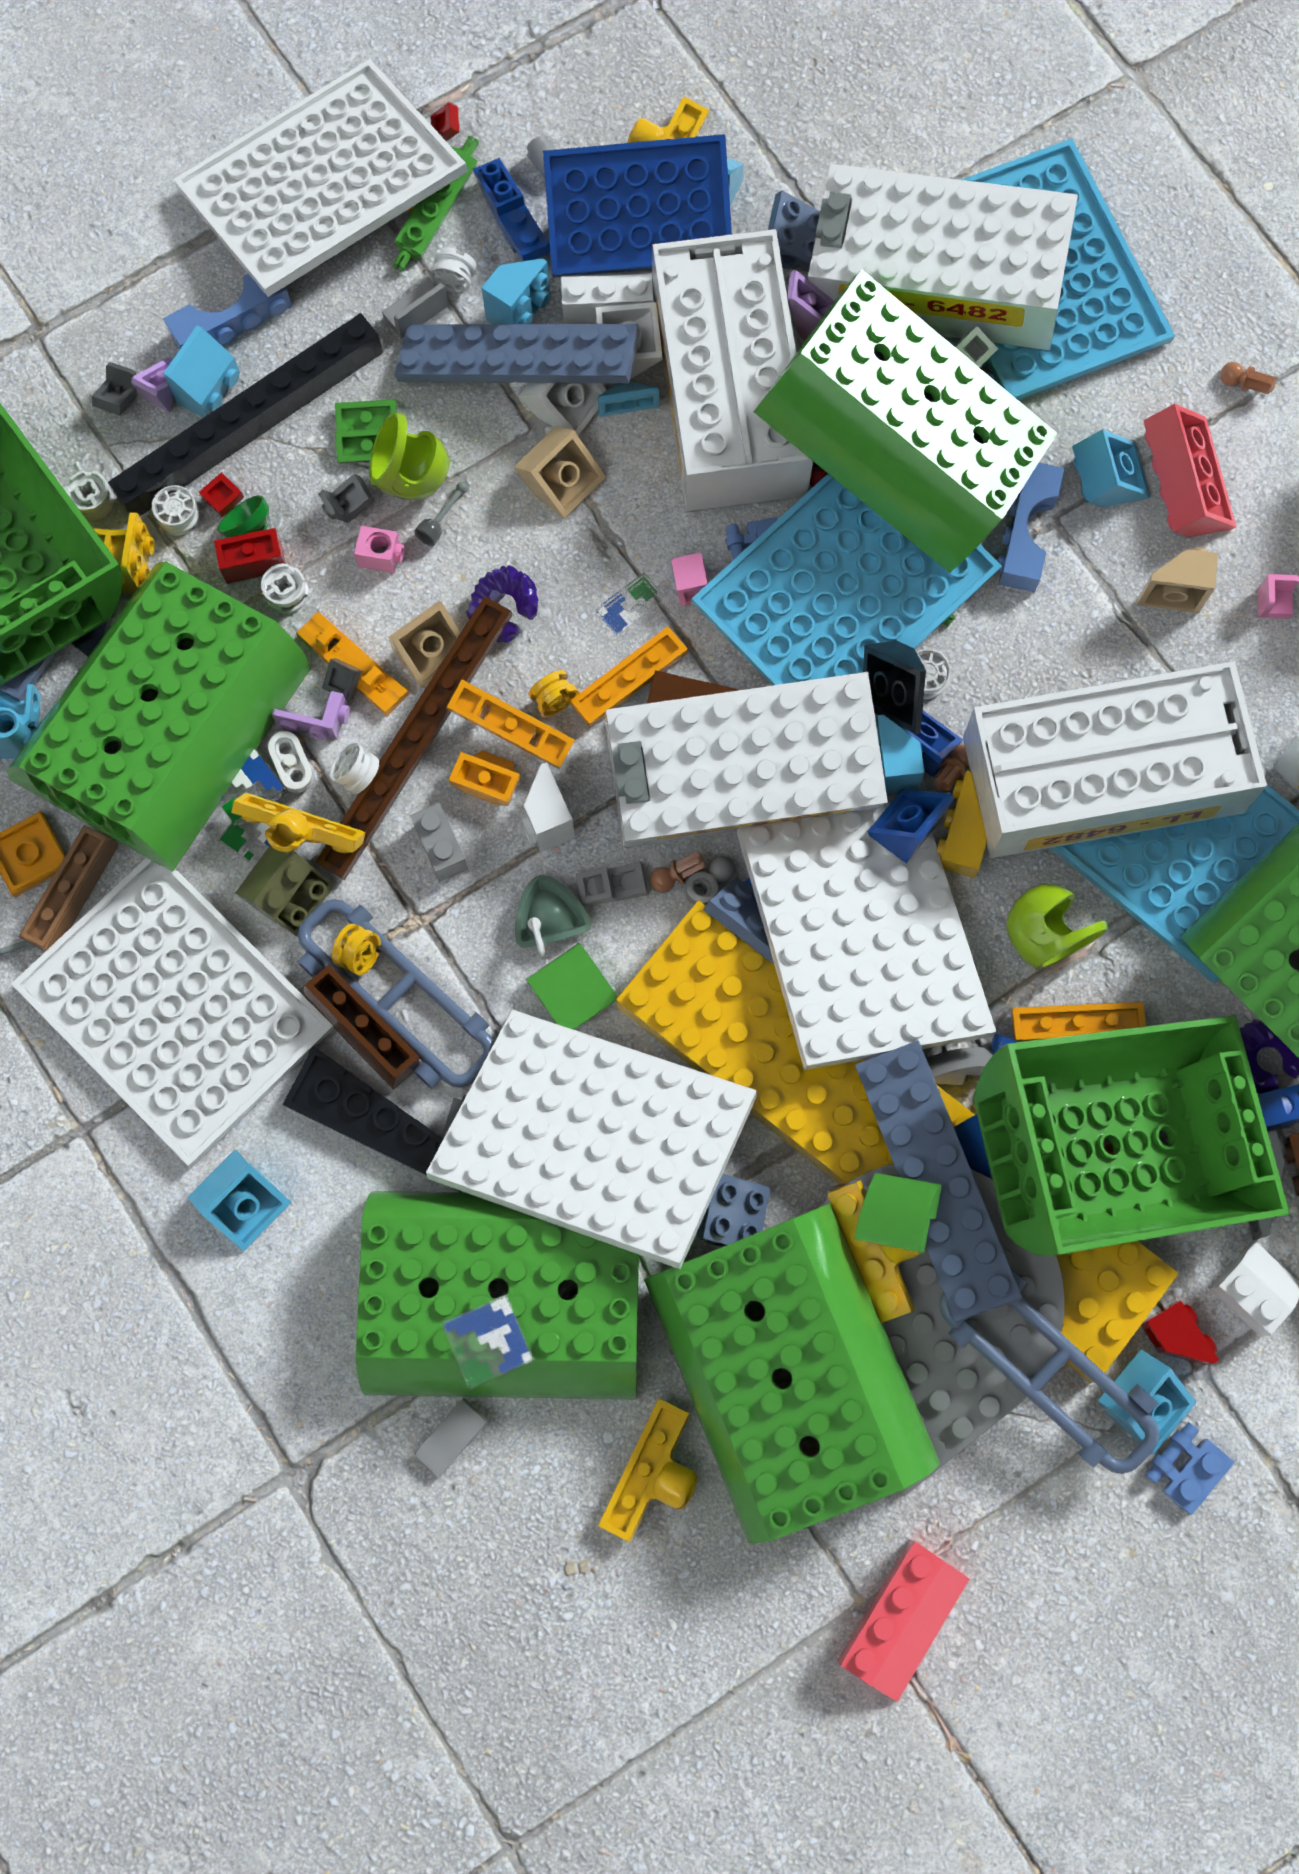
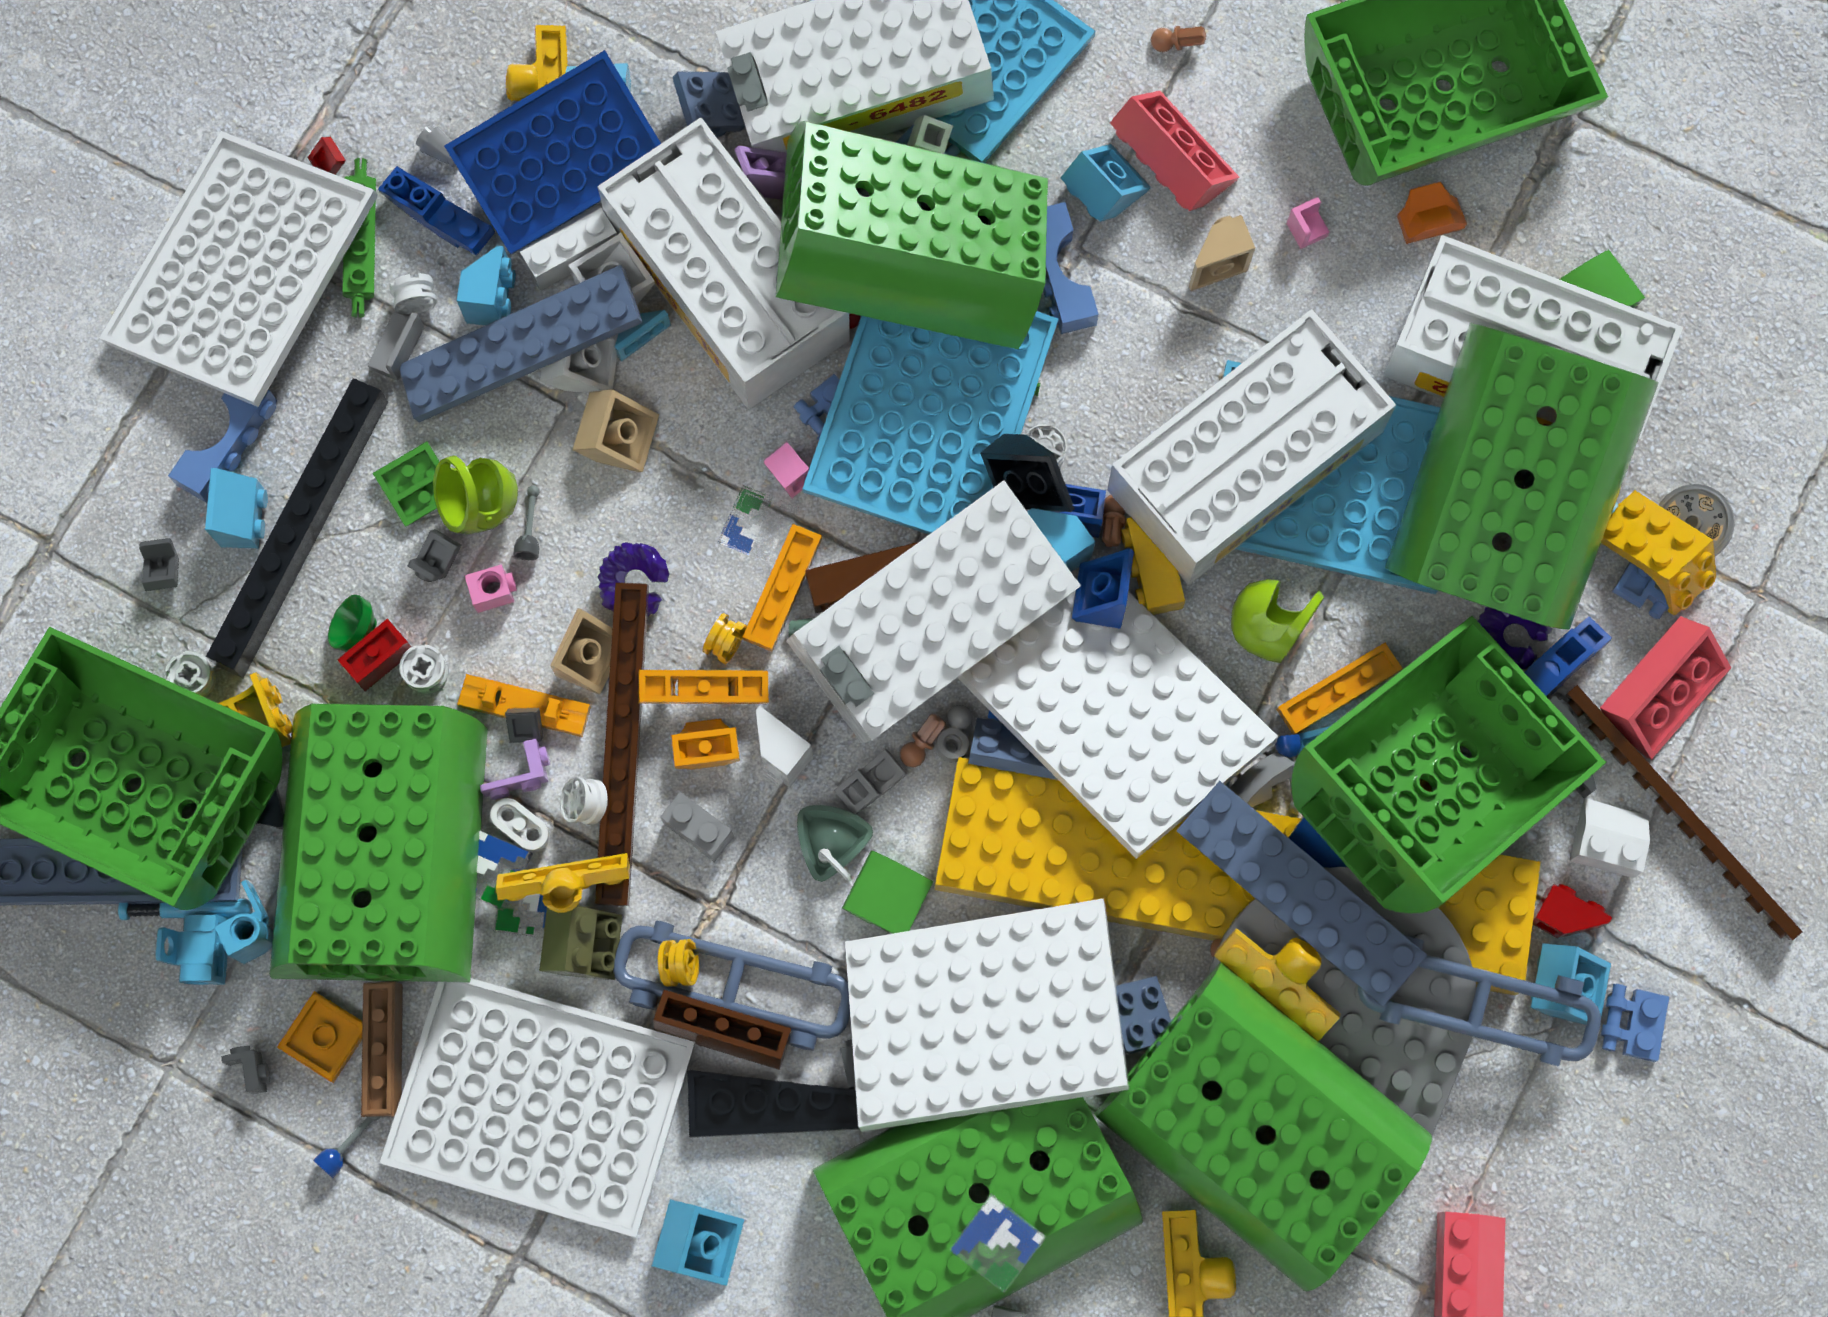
camera: 30 degrees left, 0 degrees up
(153, 385) = (194, 540): lavender slope -> none
(176, 511) = (281, 648): white wheel -> none
(221, 494) = (314, 612): red plate -> none
(898, 1212) = (1285, 939): bright green slope -> none

